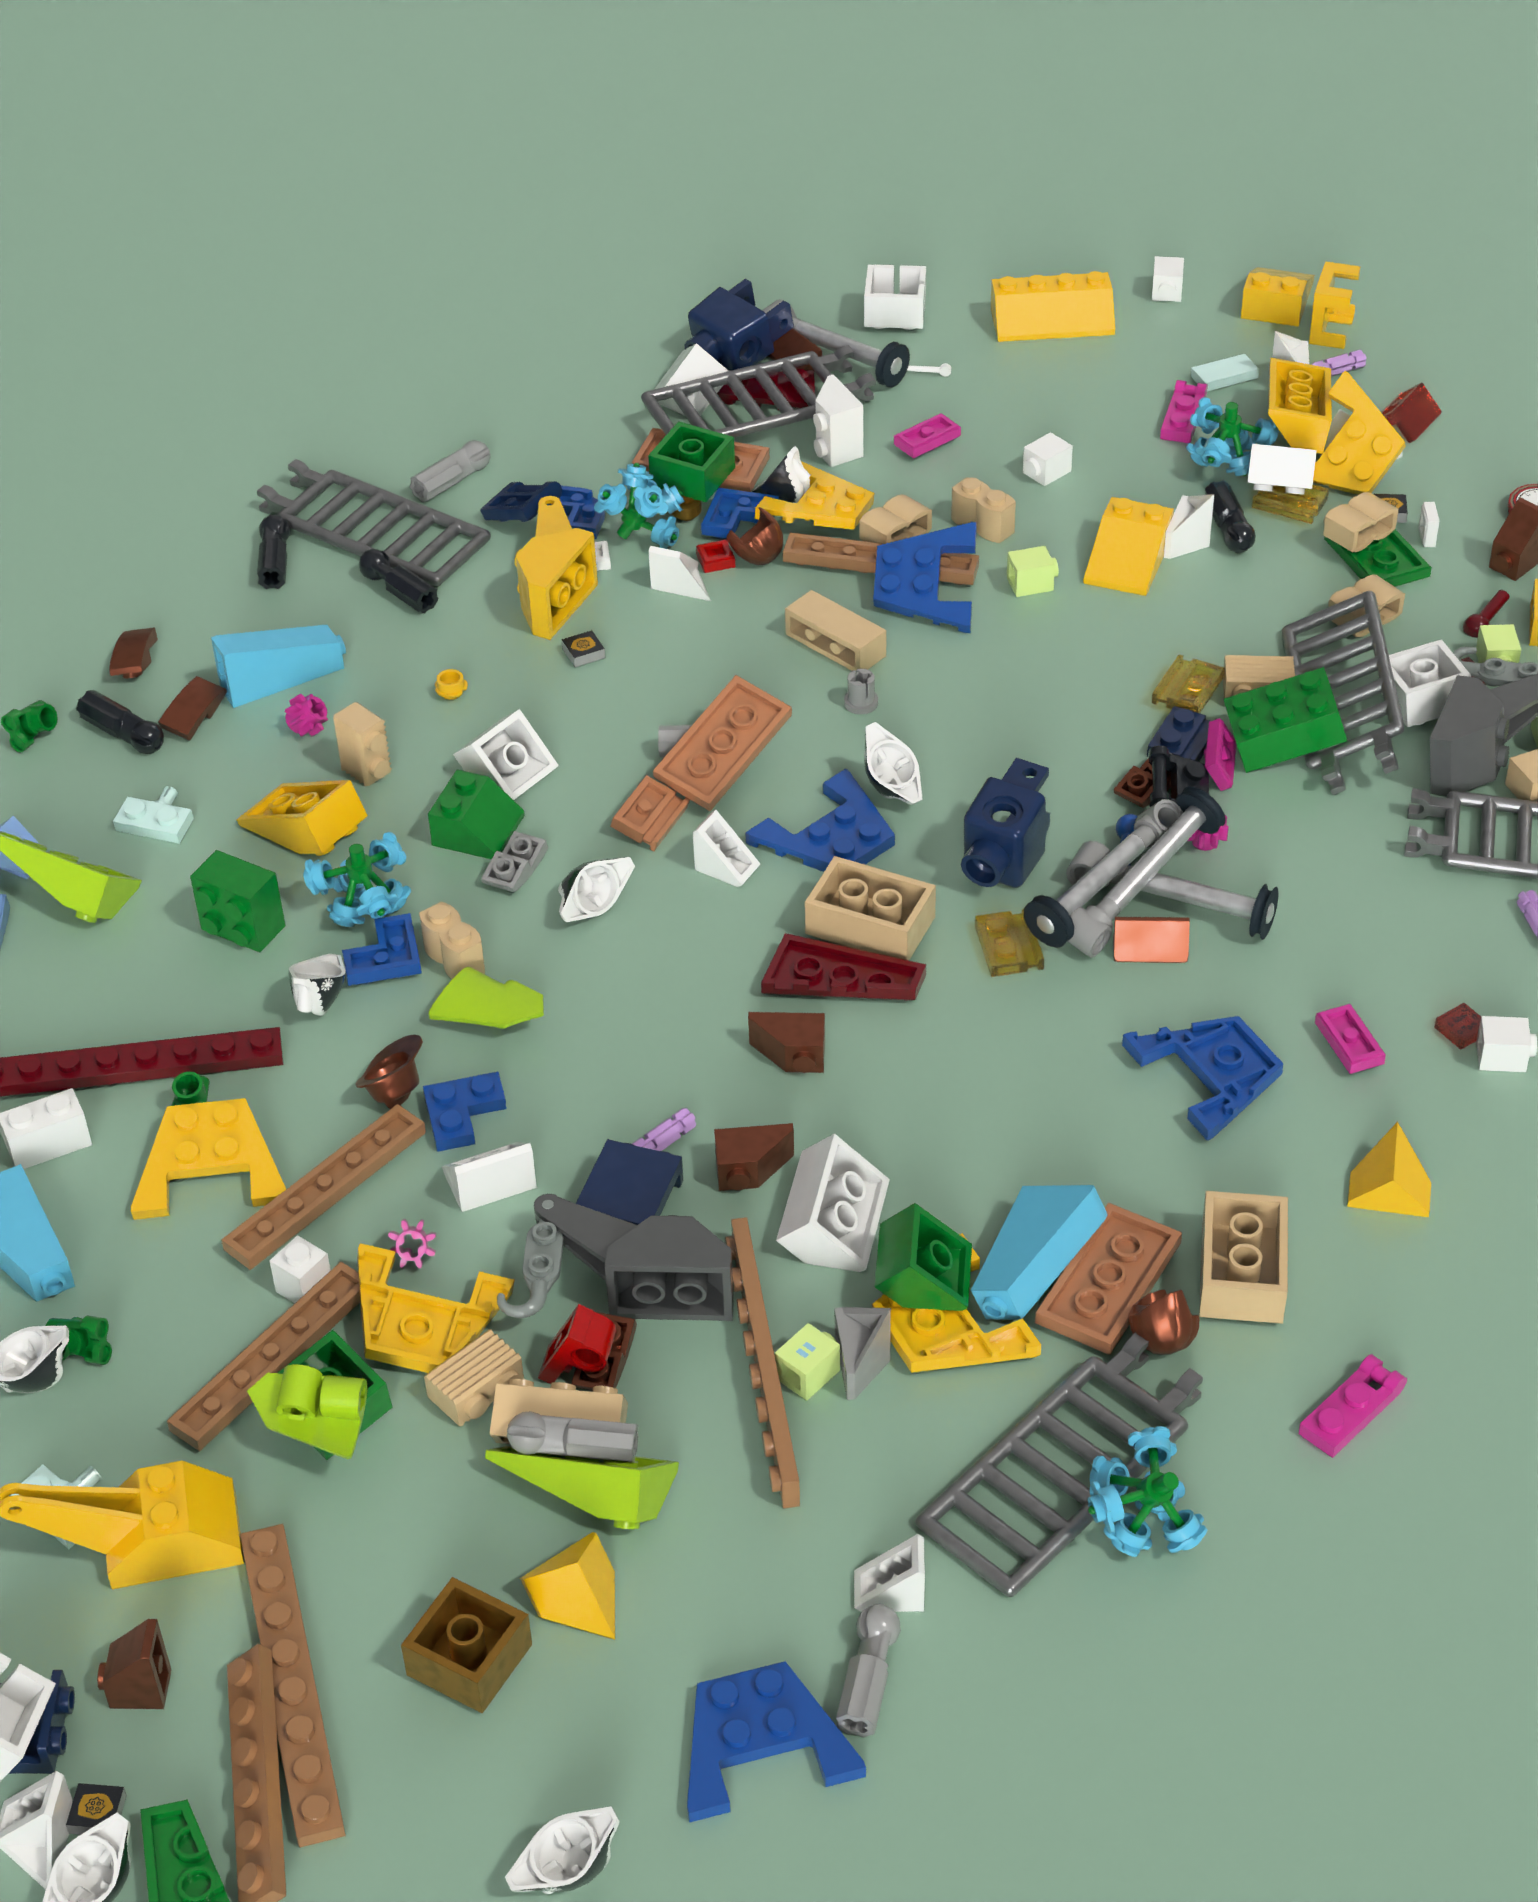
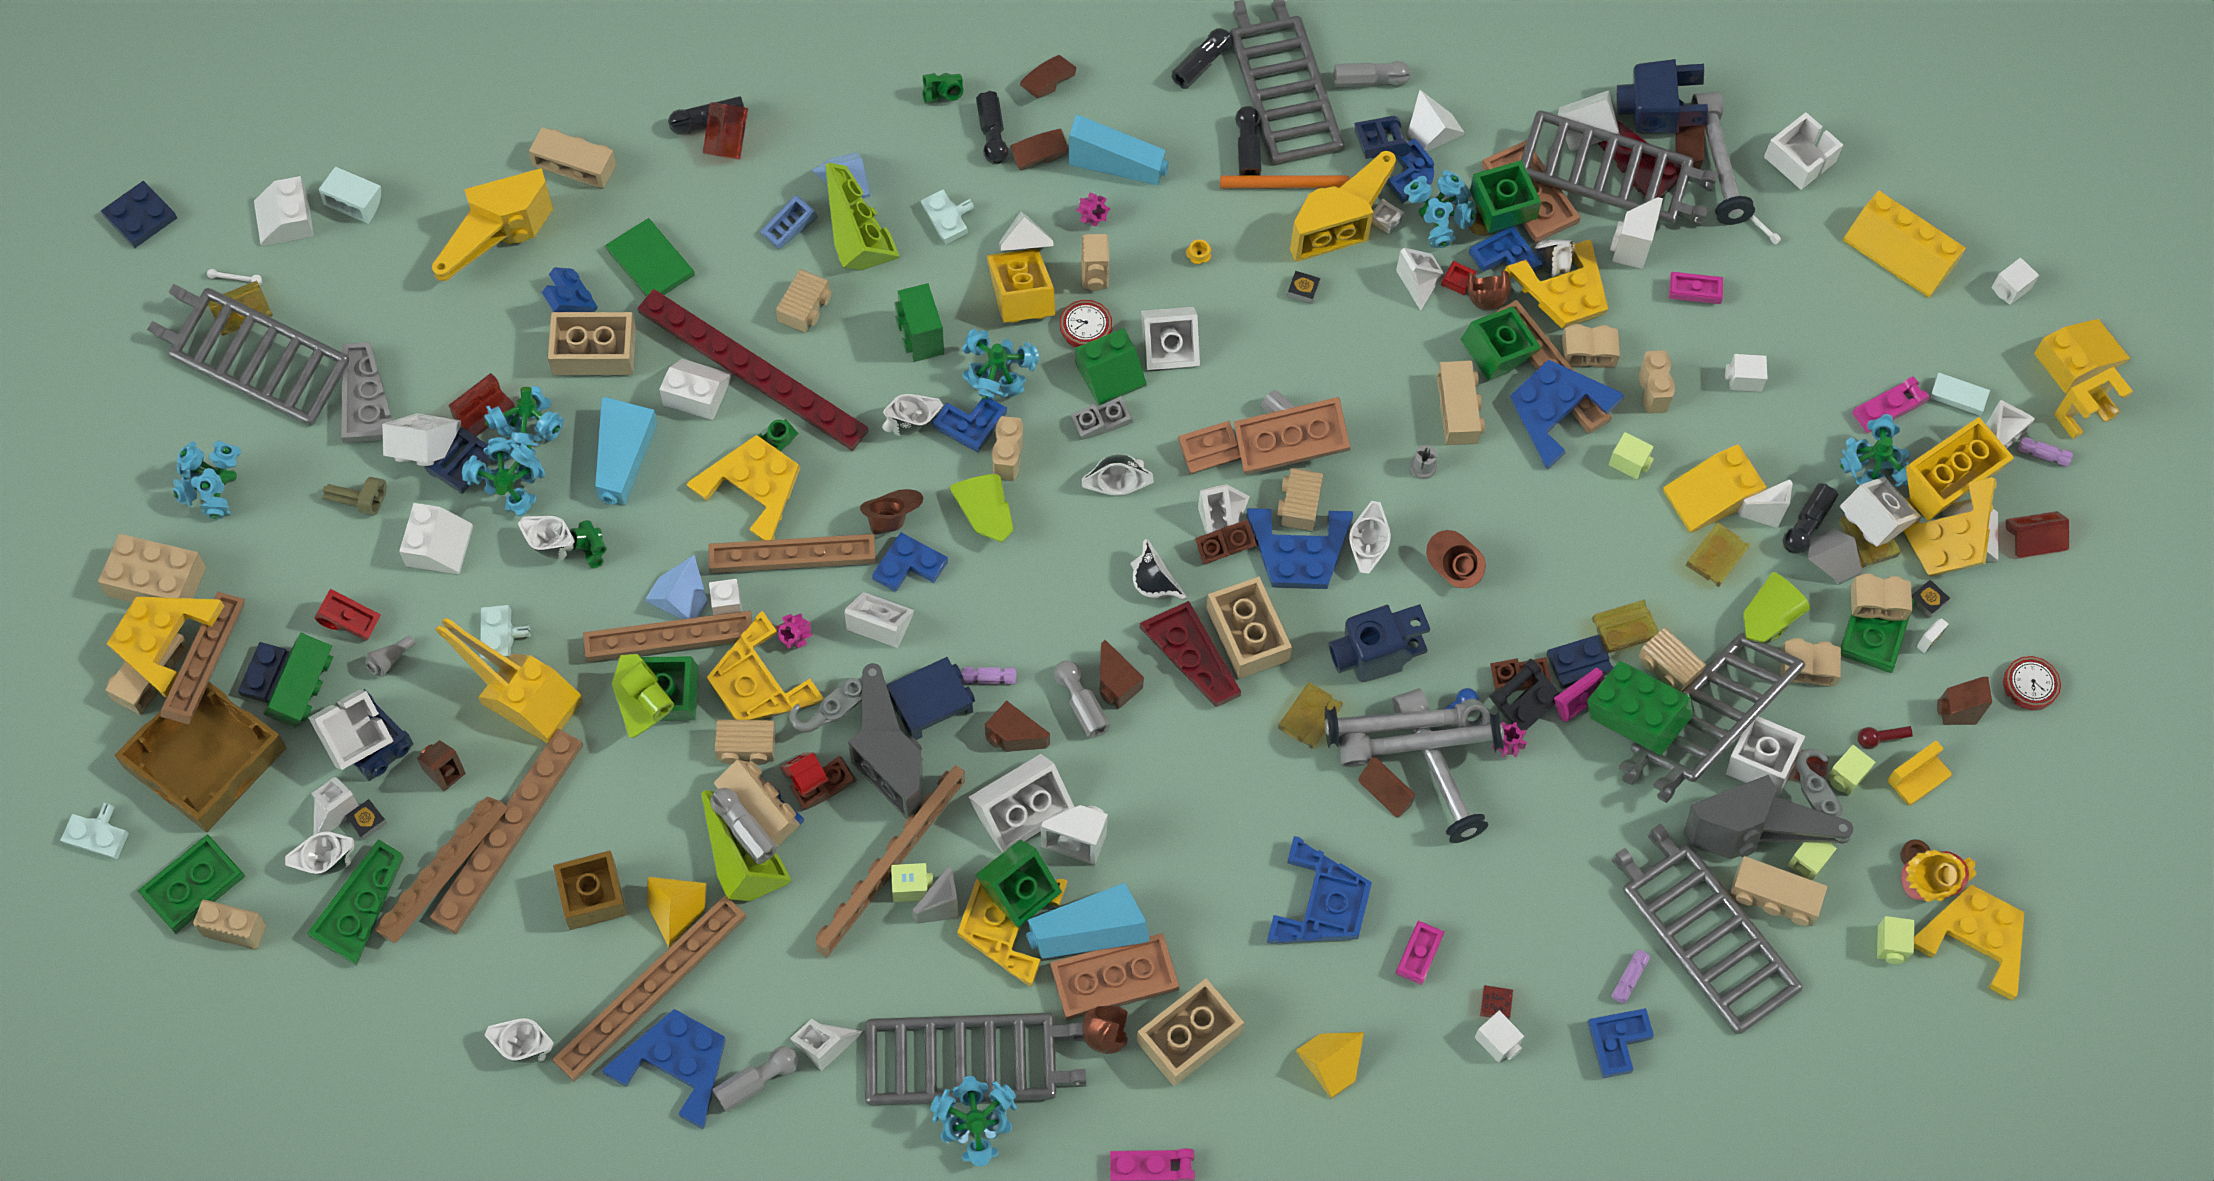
camera: 40 degrees right, 20 degrees up
(81, 974) = (803, 300): none -> tan brick
(234, 1306) = (680, 591): none -> light blue slope
(258, 772) = (1024, 234): none -> white slope
(404, 806) = (1085, 322): none -> tile
(458, 593) = (1282, 181): none -> orange piece
(552, 465) = (1432, 123): none -> white slope
(645, 1694) = (649, 988): none -> medium nougat plate
(728, 938) = (1152, 575): none -> hat
(759, 867) = (1225, 541): none -> copper slope
(785, 1085) = (1082, 700): none -> light grey piece
(787, 790) = (1301, 499): none -> tan brick
(816, 565) = (1499, 342): none -> green slope
(931, 1175) = (1076, 833): none -> white slope
(987, 730) = (1456, 559): none -> copper piece
(1192, 588) = (1718, 554): none -> clear yellow plate
(1283, 524) = (1835, 555): none -> light grey slope
(1287, 587) = (1773, 609): none -> lime panel

